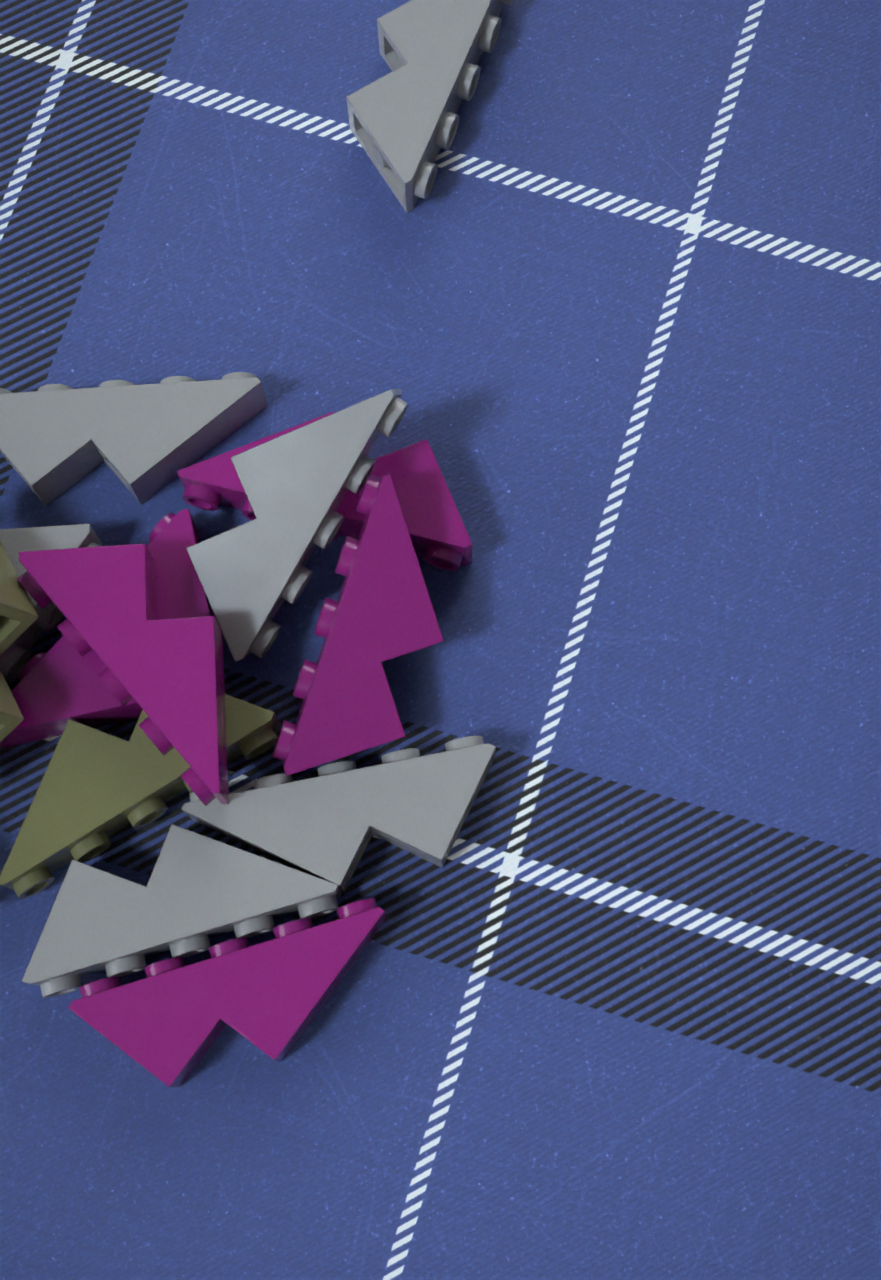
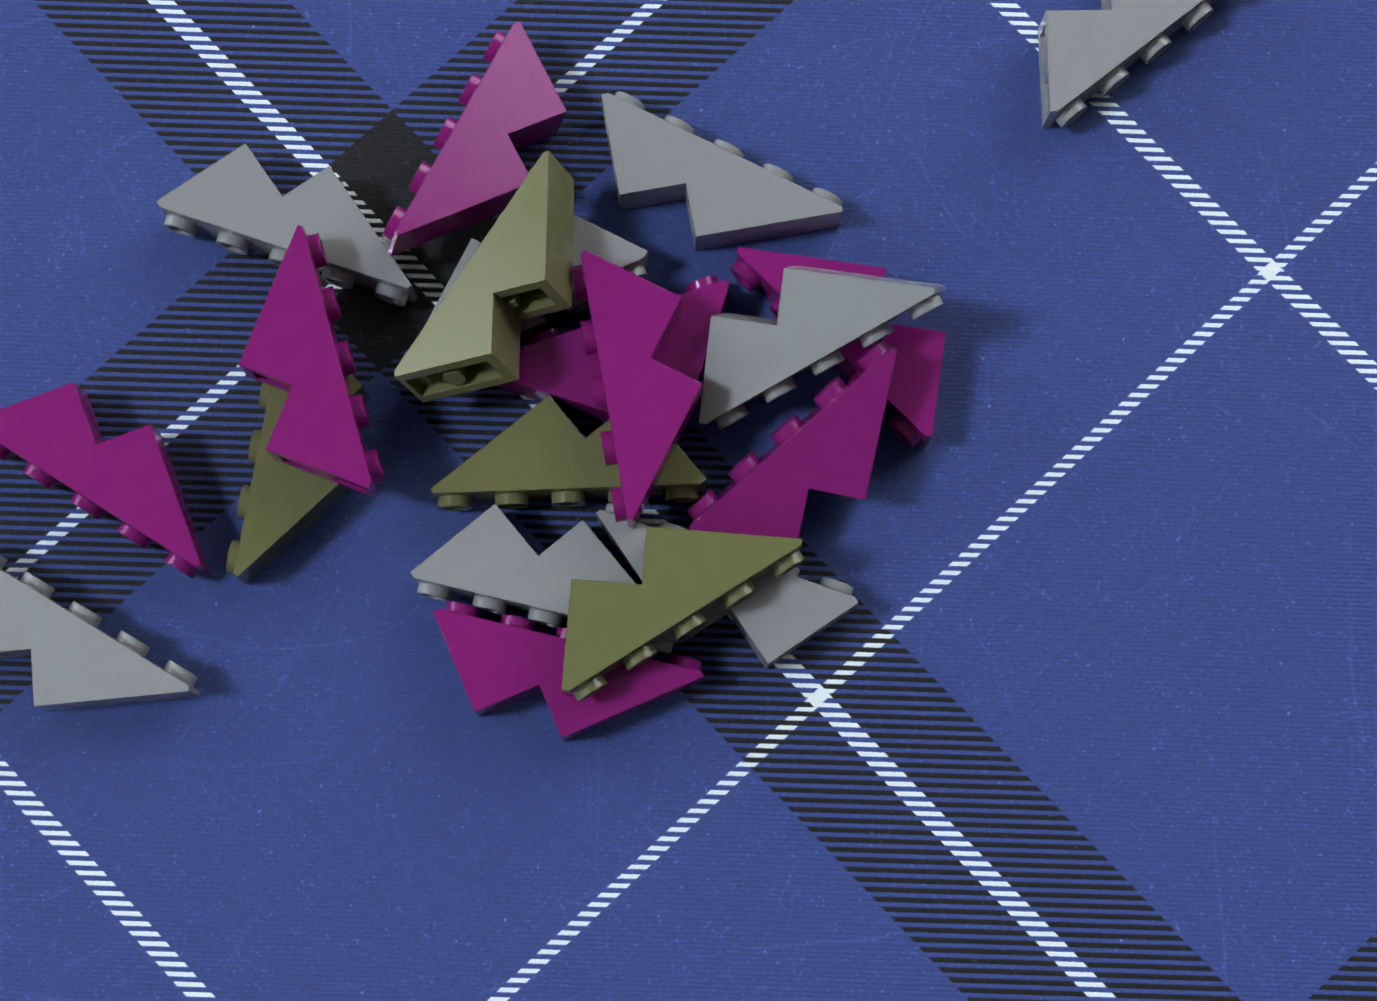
camera: 25 degrees right, 5 degrees up
(305, 828) = (680, 581): none -> olive slope

